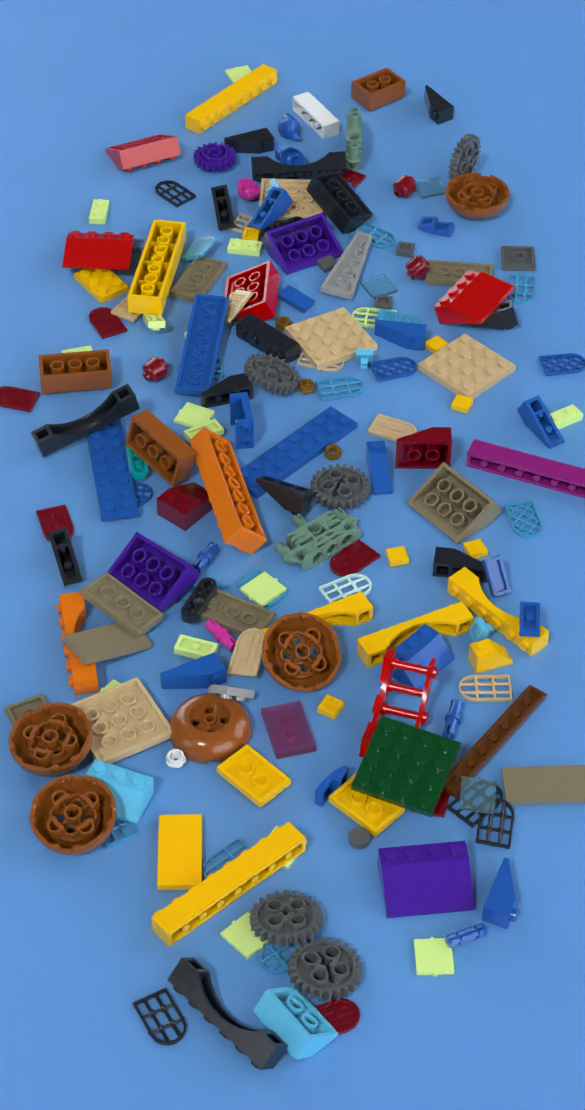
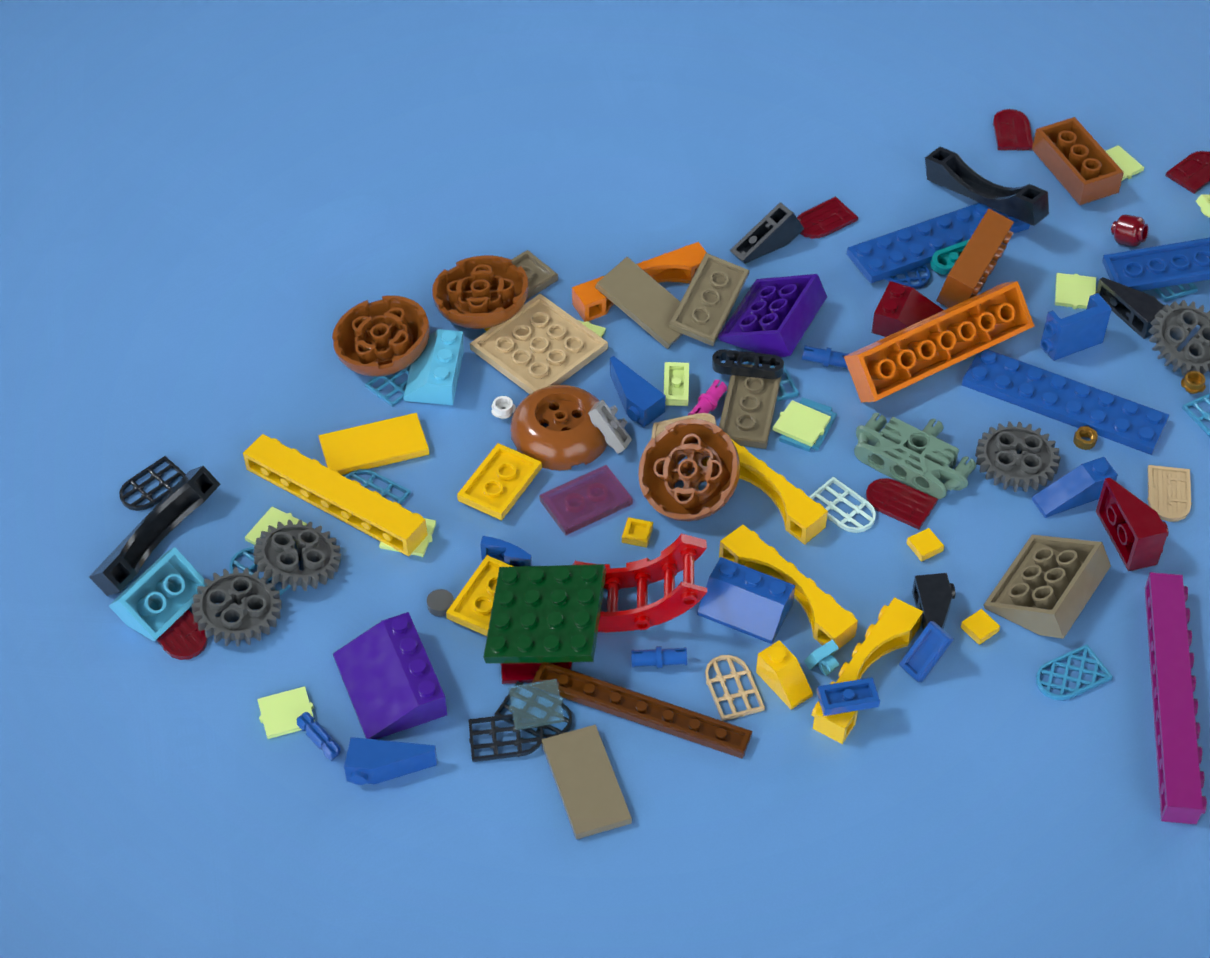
camera: 75 degrees right, 5 degrees up
(212, 425) = (1044, 301): yellowish green plate -> none
(287, 495) = (968, 402): black slope -> none

